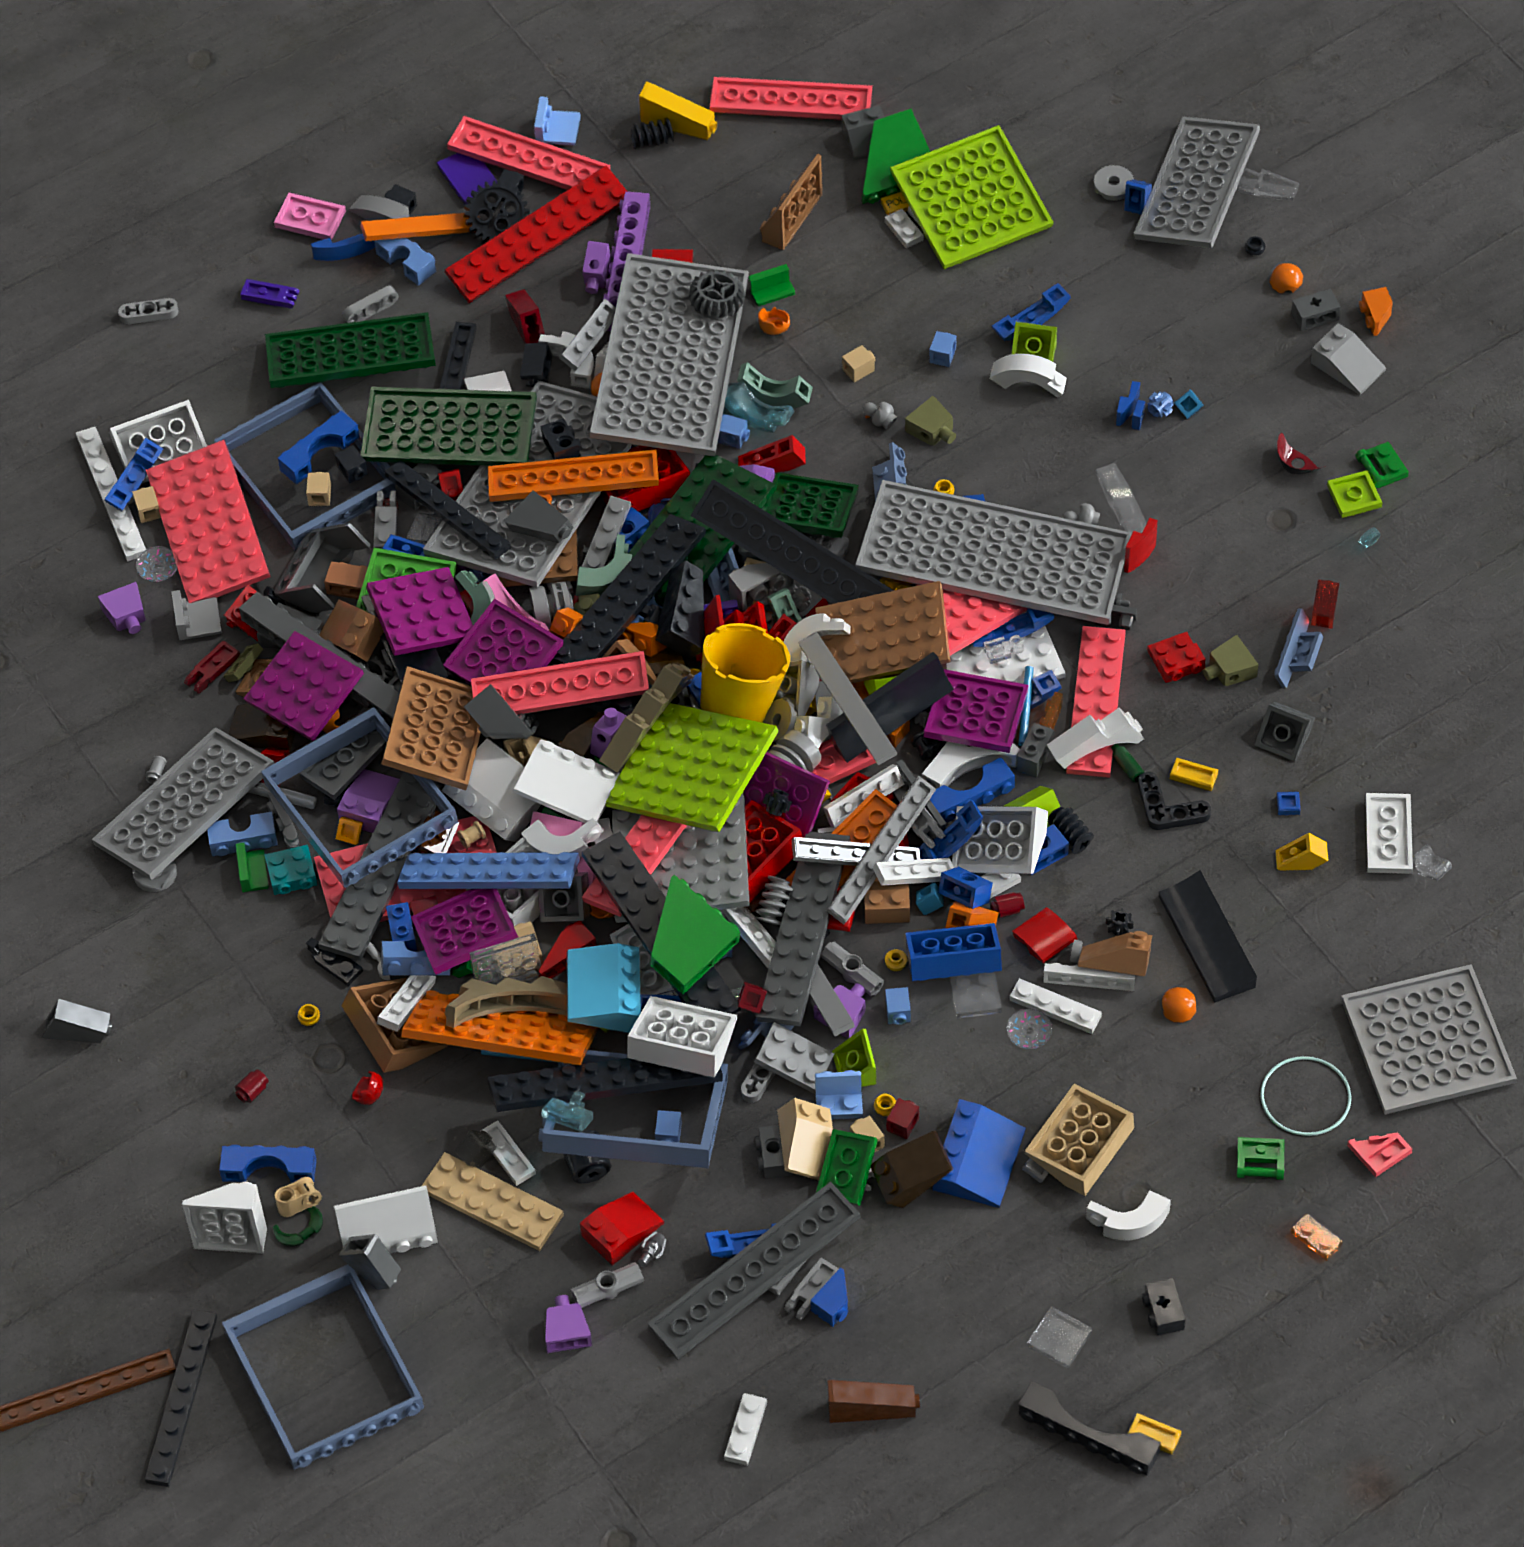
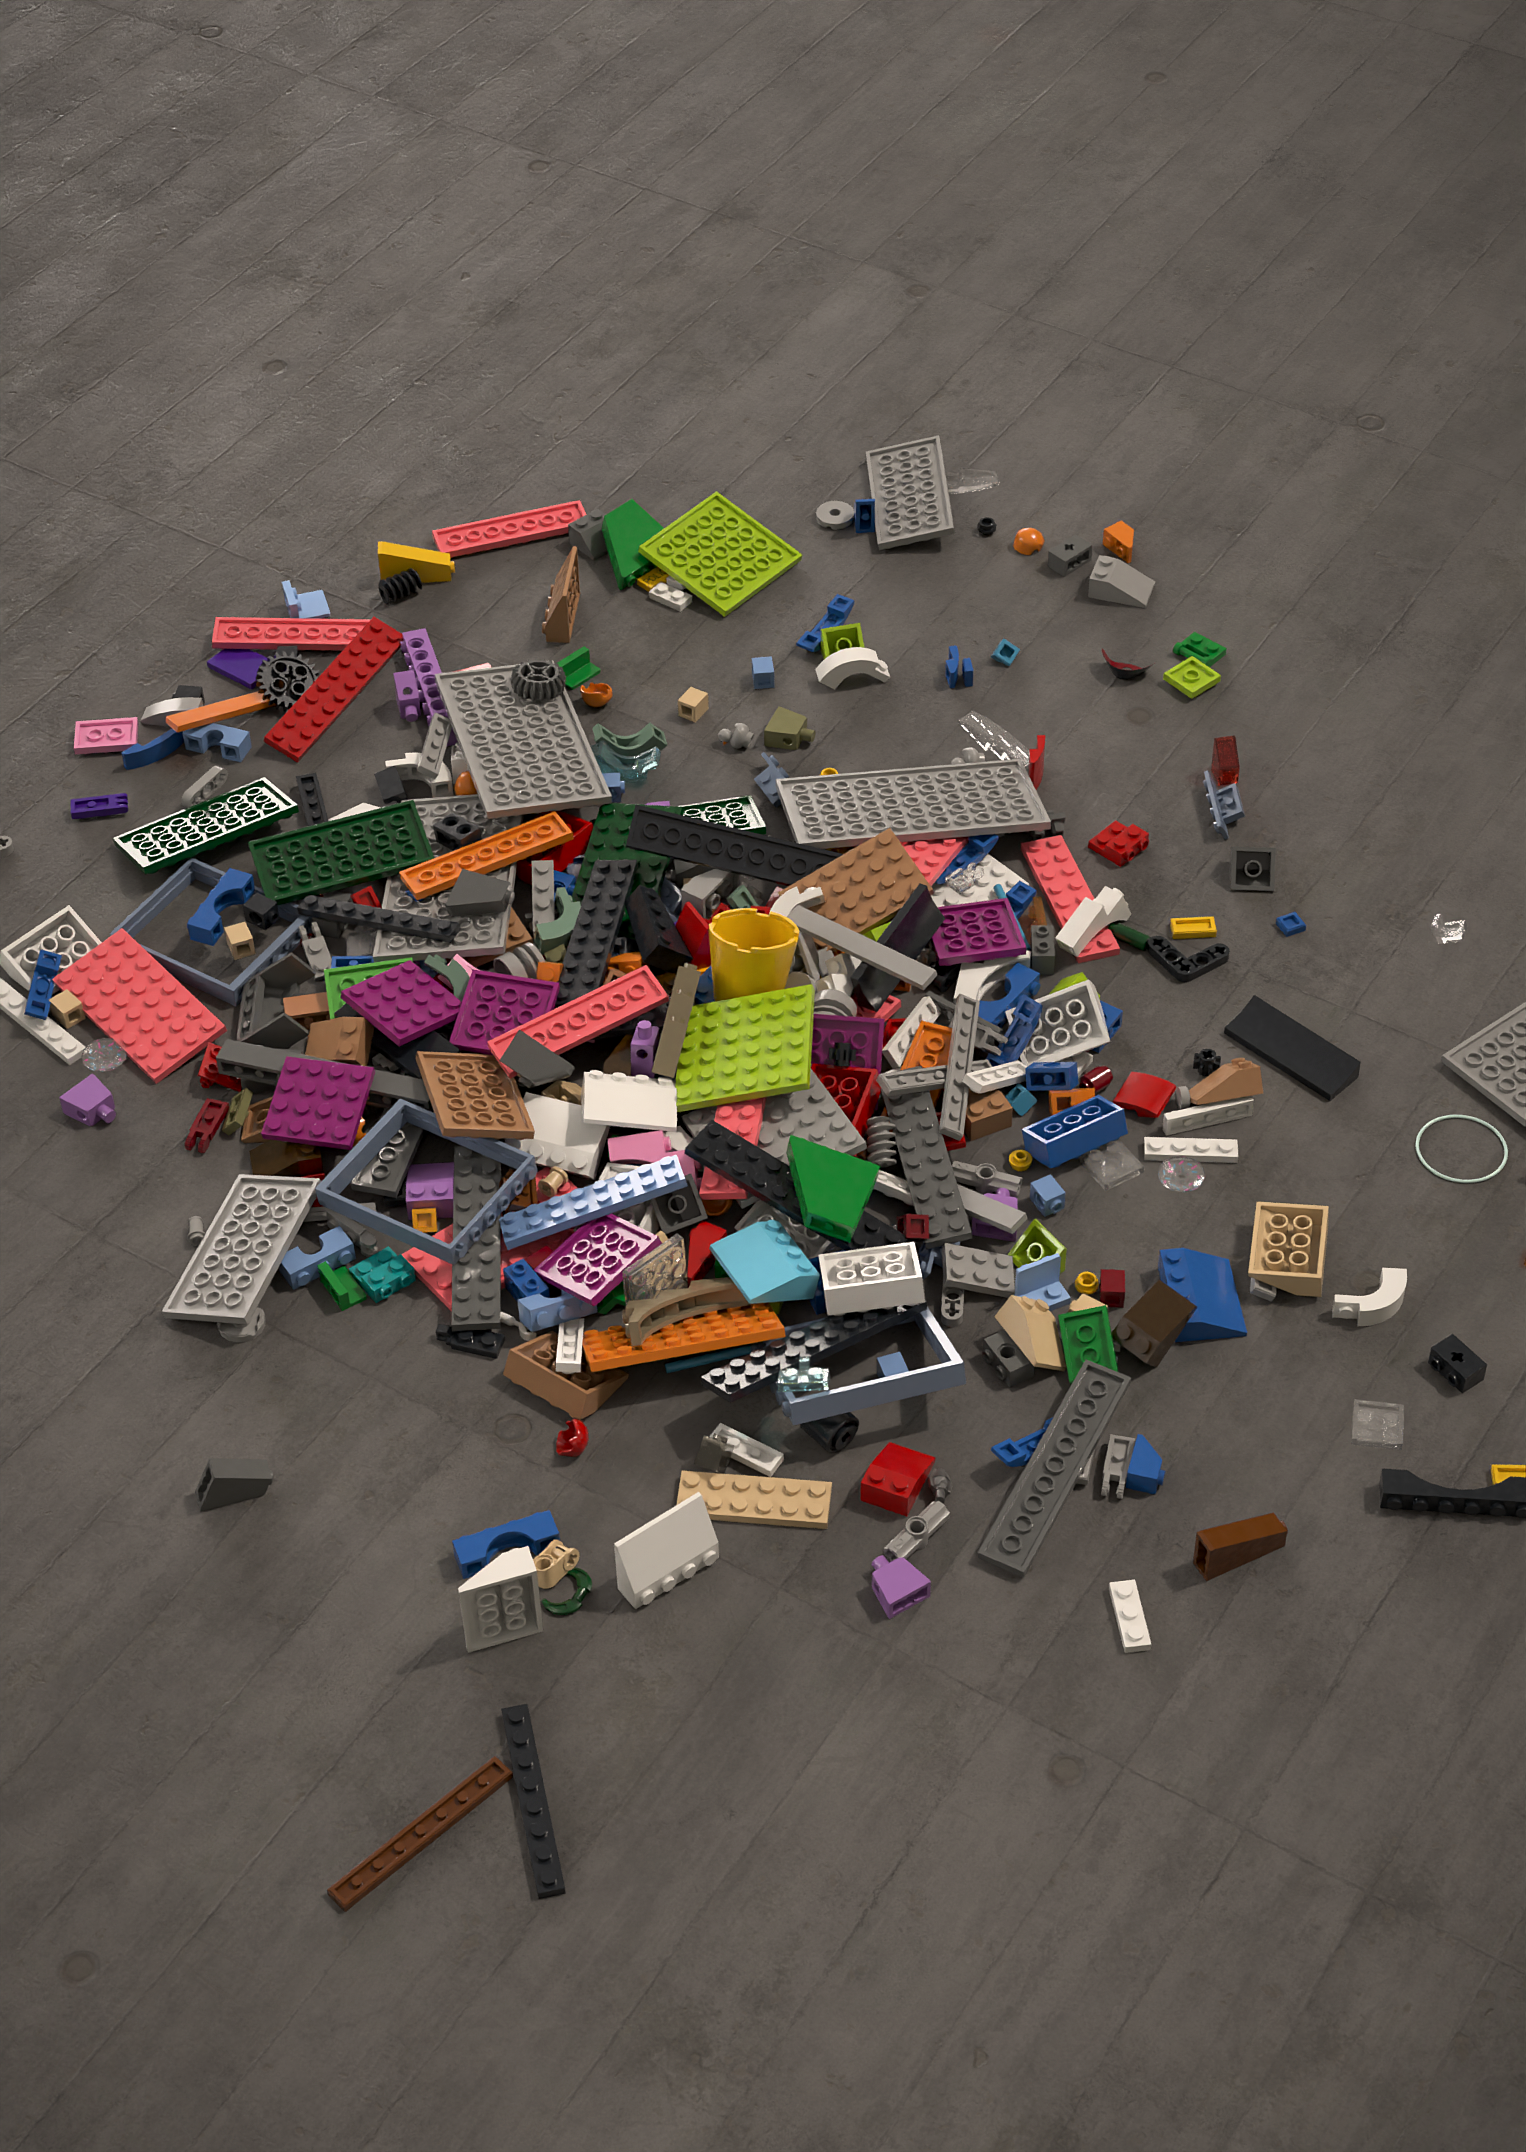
camera: 25 degrees left, 10 degrees down
(196, 618) = (167, 1089): light grey bracket -> none
(251, 1086) = (449, 1478): dark red brick -> none
(291, 1301) = (610, 1653): sand blue door -> none
(308, 1009) = (472, 1390): yellow plate -> none
(371, 1260) = (669, 1589): dark grey slope -> none
(525, 316) = (361, 753): dark red slope -> none
(544, 841) = (630, 1157): white arch -> none
(780, 455) = (667, 788): red slope -> none
(1071, 828) = (1117, 1000): black piece -> none
(1160, 404) = (982, 658): medium blue gear -> none
(1179, 1004) = (1301, 1111): orange hair -> none
(1231, 663) = (1172, 831): olive torso -> none
(1260, 1151) = (1458, 1204): green plate -> none
(1302, 854) = (1331, 957): yellow slope -> none
(1370, 537) = (1227, 704): clear light blue tile -> none
(1388, 833) = (1394, 918): white plate -> none

